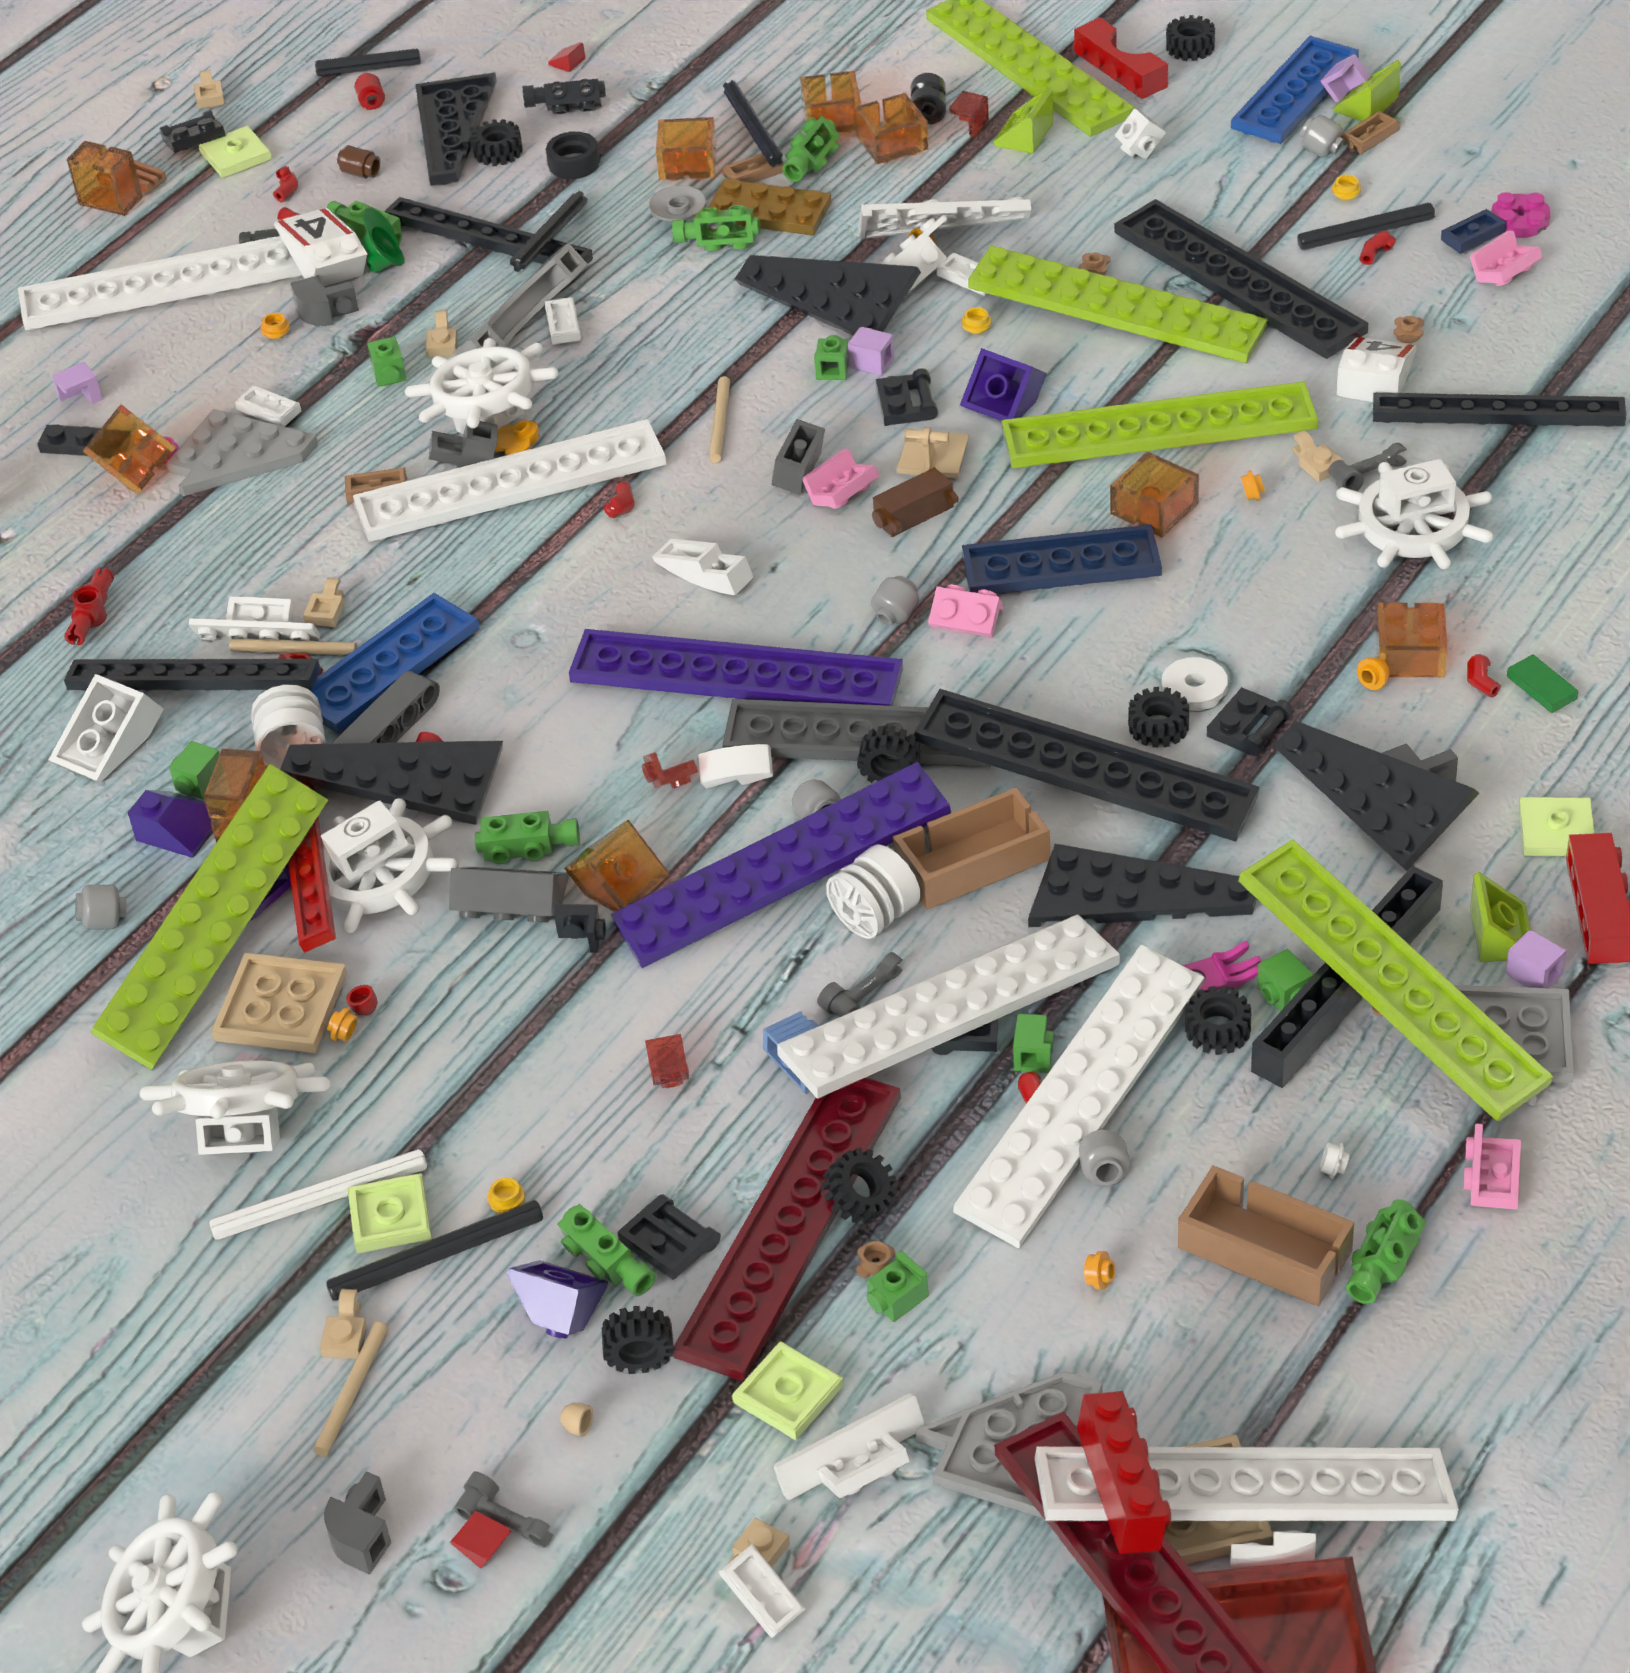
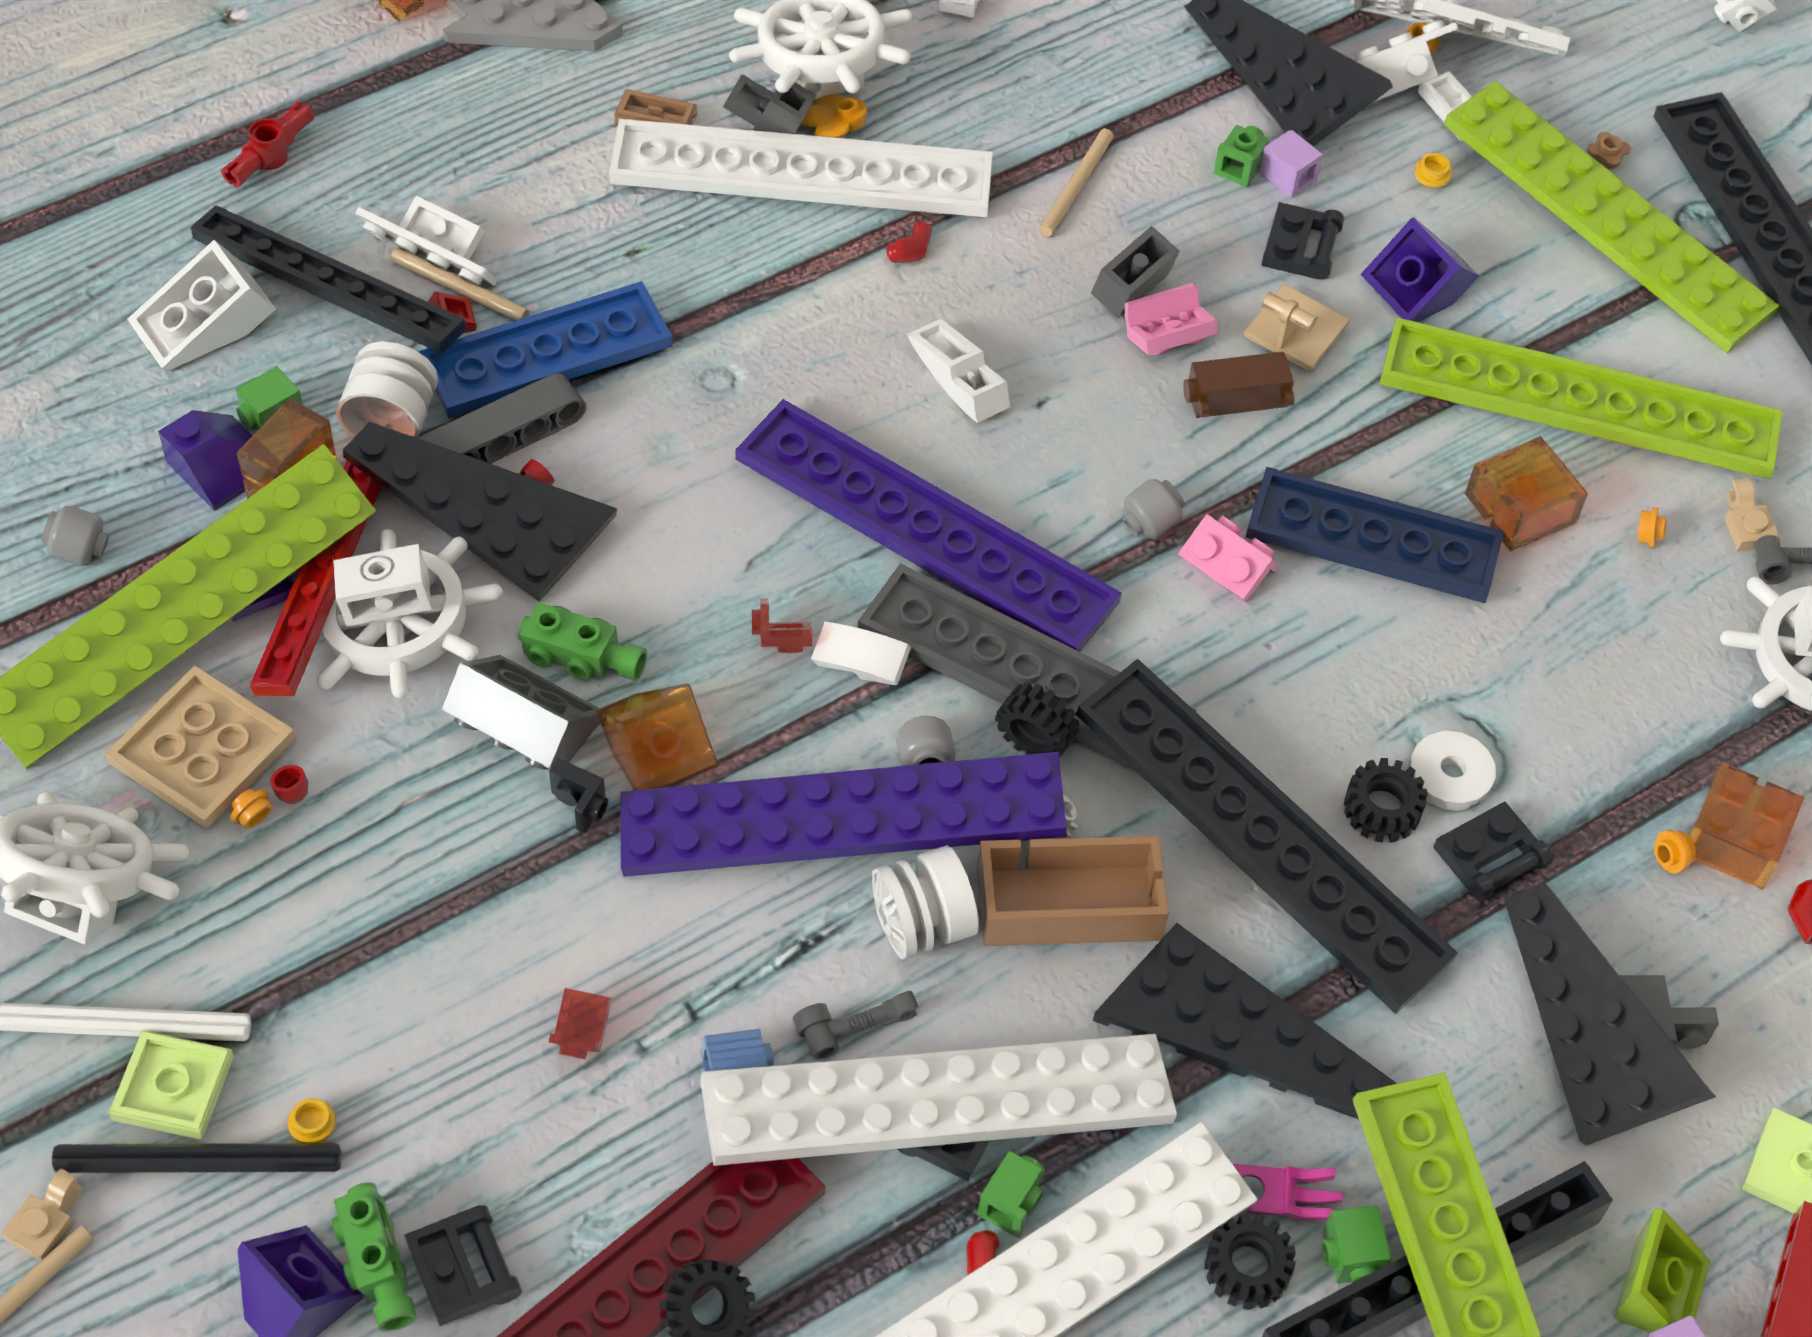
camera: 15 degrees right, 10 degrees up
(326, 607) = (519, 250): tan plate -> none

